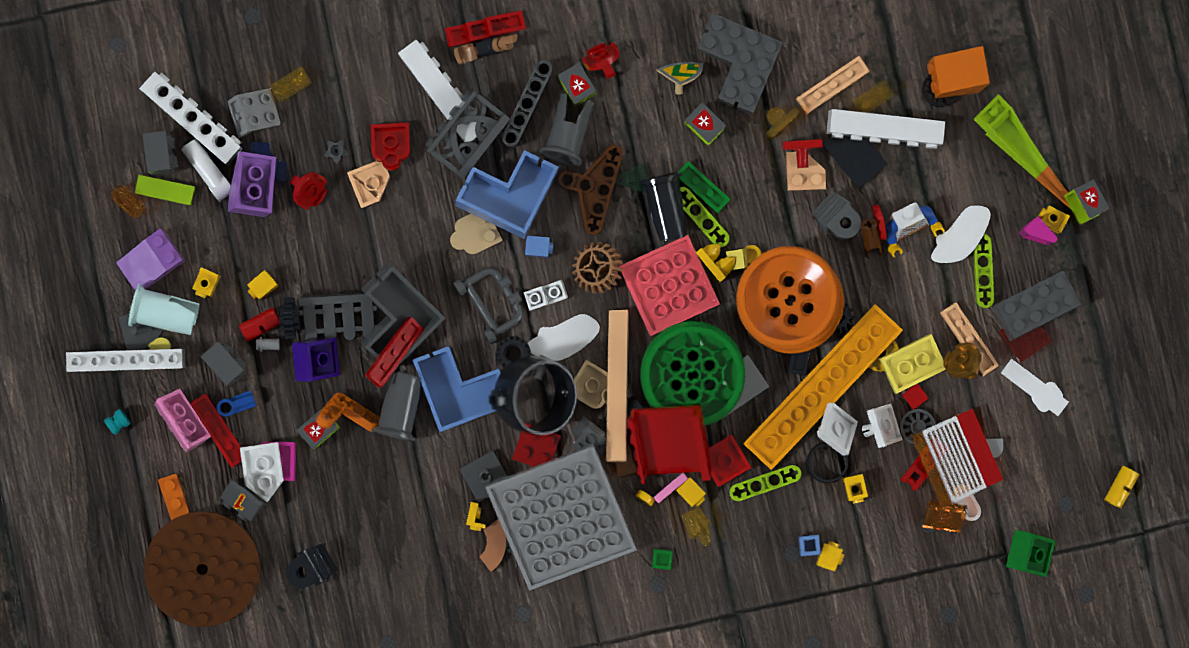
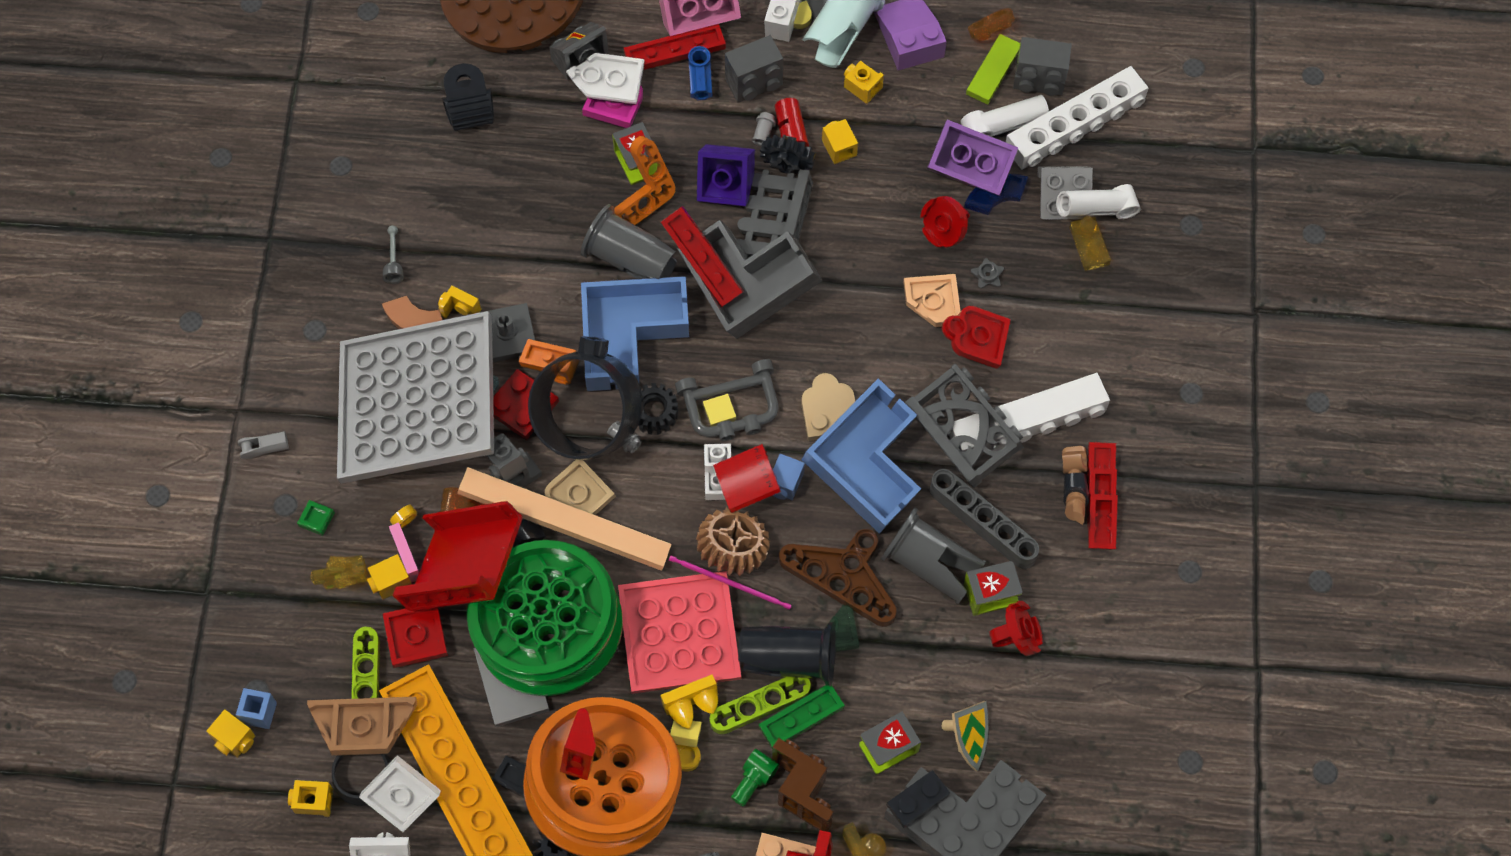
camera: 105 degrees right, 20 degrees down
(262, 85) = (1118, 201): none -> white piece
(462, 573) = (392, 271): none -> dark grey hinge
(499, 308) = (719, 410): none -> light yellow tile
(500, 438) = (539, 354): none -> orange plate
(551, 271) = (746, 478): none -> red slope
(564, 339) = (652, 481): white sticker -> none
(619, 612) = (267, 444): none -> light grey bar
(626, 261) = (730, 582): none -> dark pink piece
(742, 93) = (918, 799): none -> black plate
(749, 205) = (758, 770): none -> green pin
(752, 171) = (802, 784): none -> reddish brown bracket
(787, 313) = (579, 747): none -> red tile
(799, 471) = (361, 724): none -> medium nougat wing

